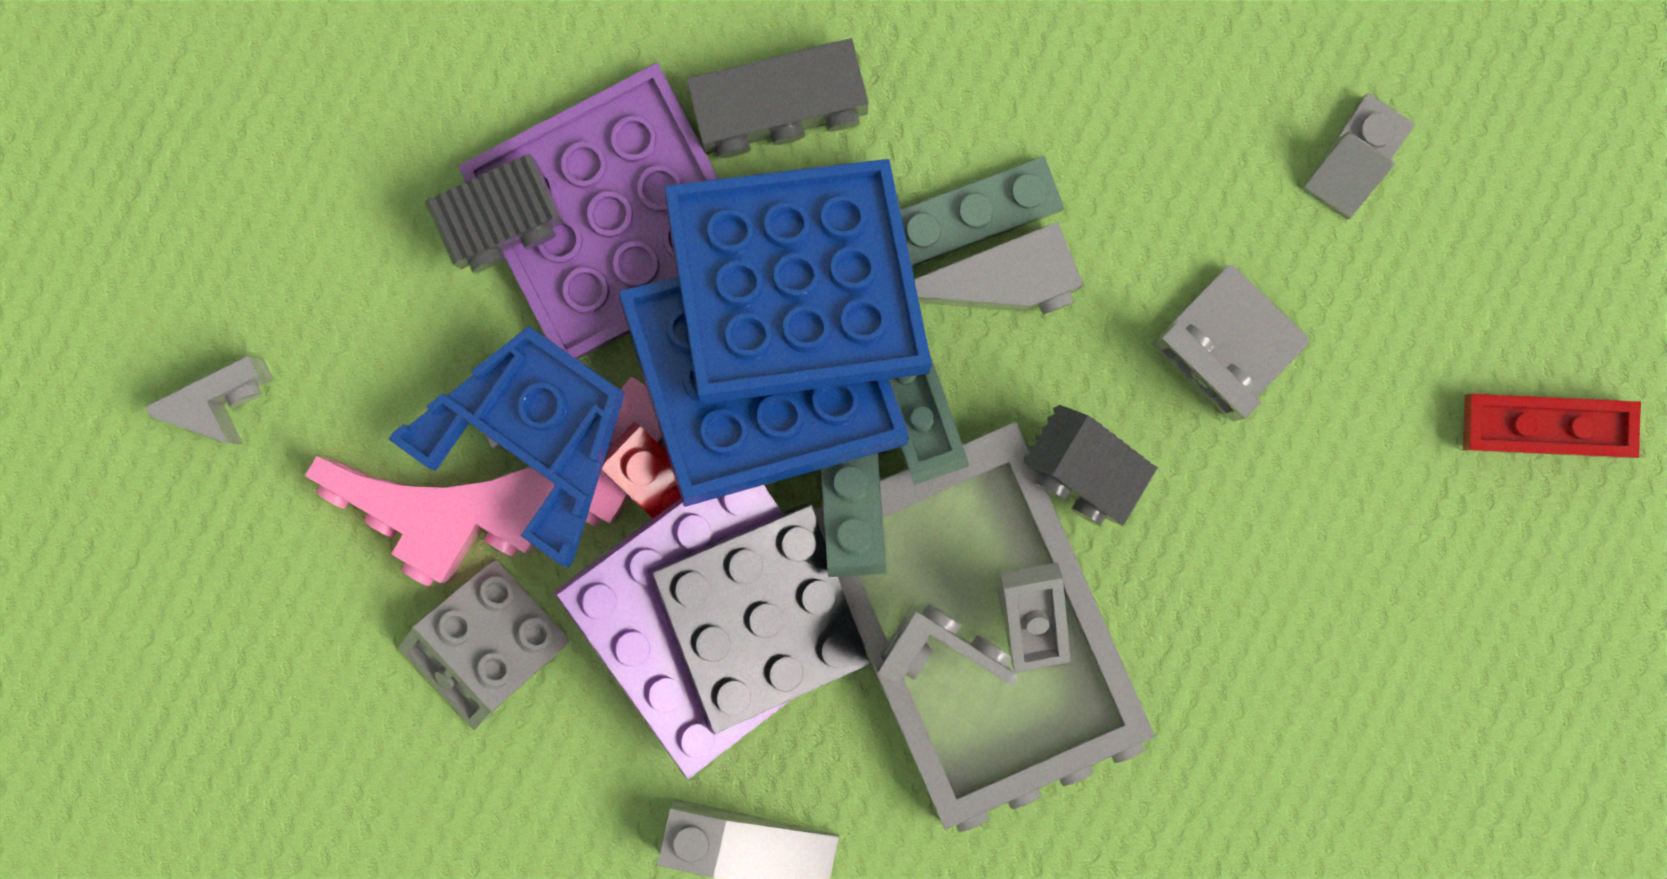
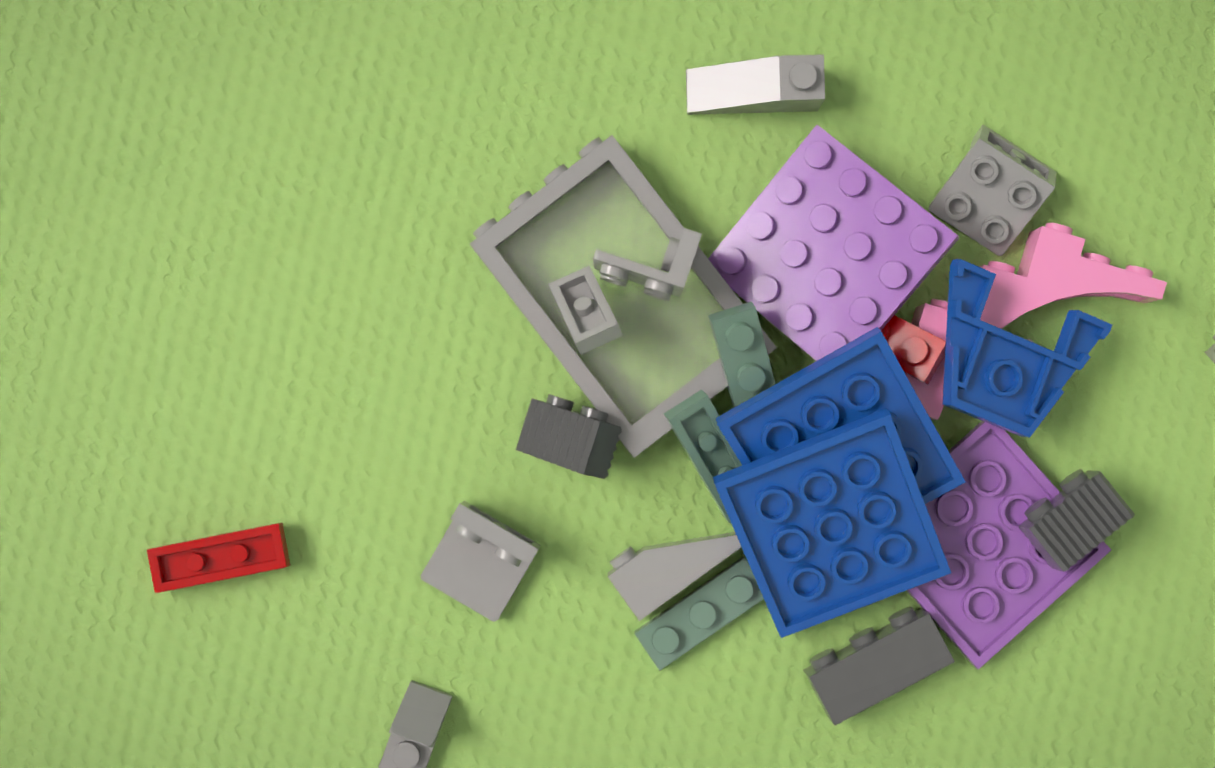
camera: 170 degrees right, 0 degrees up
(758, 618) = (795, 257): plate -> none

